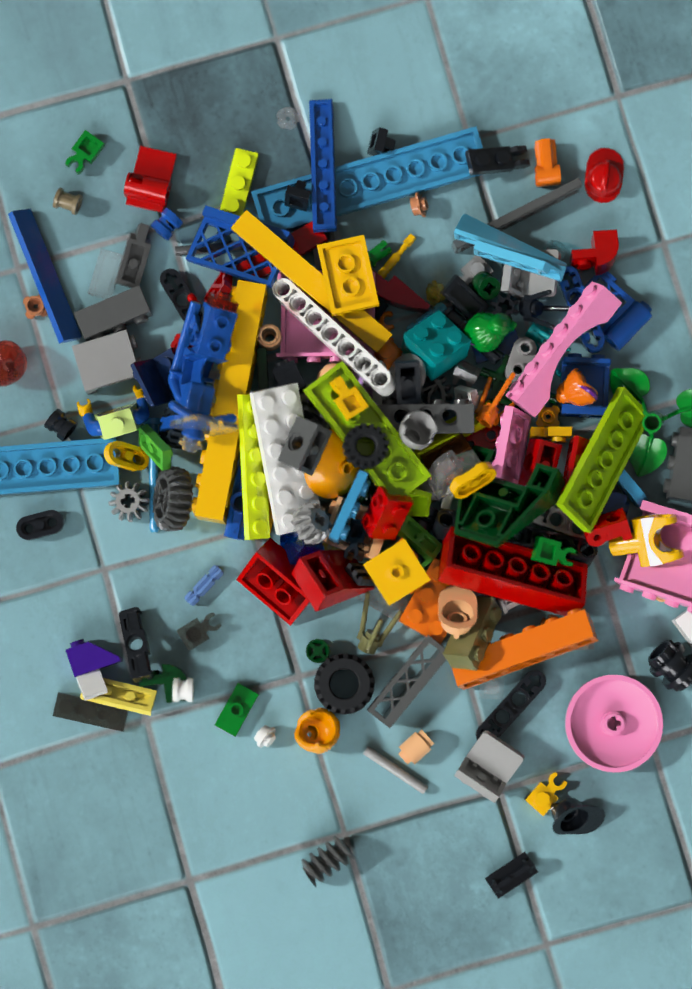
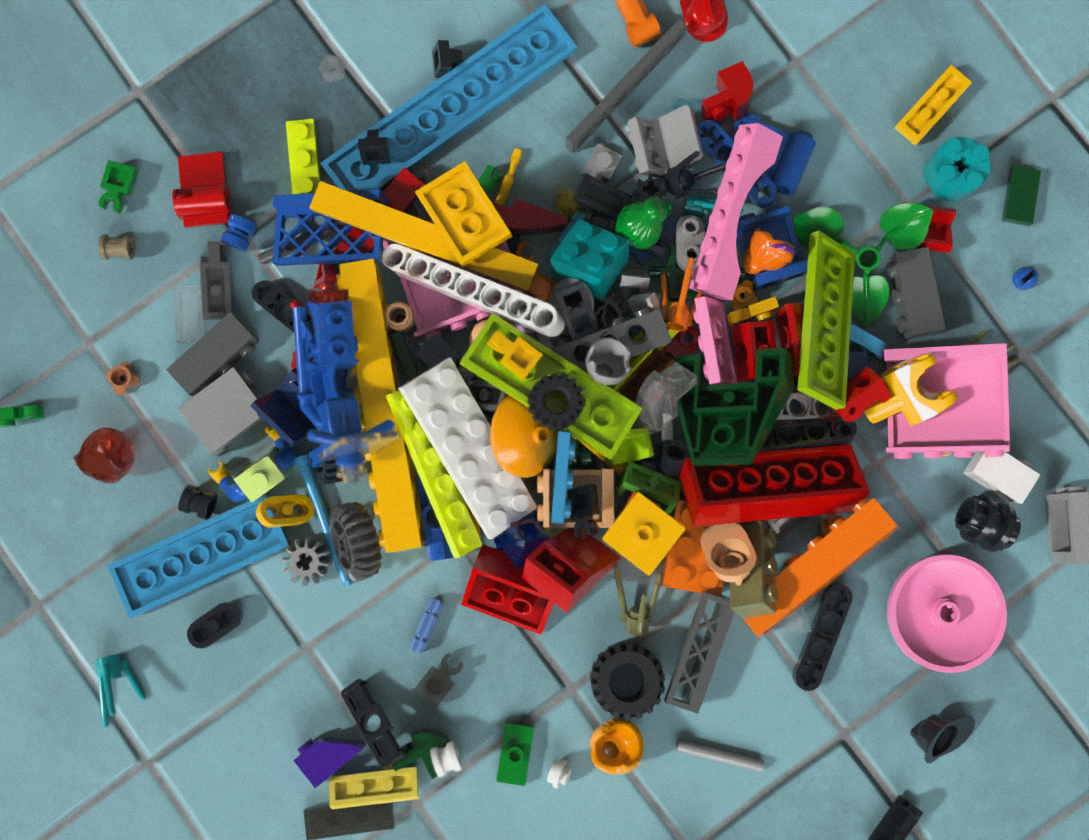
camera: 25 degrees left, 0 degrees up
(44, 275) = (120, 339): blue tile -> none
(92, 684) = (338, 789): white tile -> none
(155, 447) = (313, 489): bright green plate -> none
(304, 445) = (485, 426): dark grey brick -> none
(311, 523) = (525, 513): light grey gear -> none
(316, 648) = (586, 655): dark green wheel -> none
(323, 166) = (390, 107): blue tile -> none
(357, 569) = (595, 546): black tile -> none
(386, 514) = (607, 471): red bracket -> none
(415, 747) = (733, 722): light nougat brick -> none
(419, 205) = (513, 112): nougat plate -> none
(472, 480) = (691, 396): yellow plate -> none
(480, 283) = (613, 171): dark green wheel -> none
(489, 766) = (825, 714): light grey bracket -> none
(495, 159) = (580, 32): black hinge -> none
(505, 249) = (631, 125): medium azure wedge -> none
(543, 796) = (895, 723): yellow plate -> none
(550, 551) = (808, 446): green plate -> none

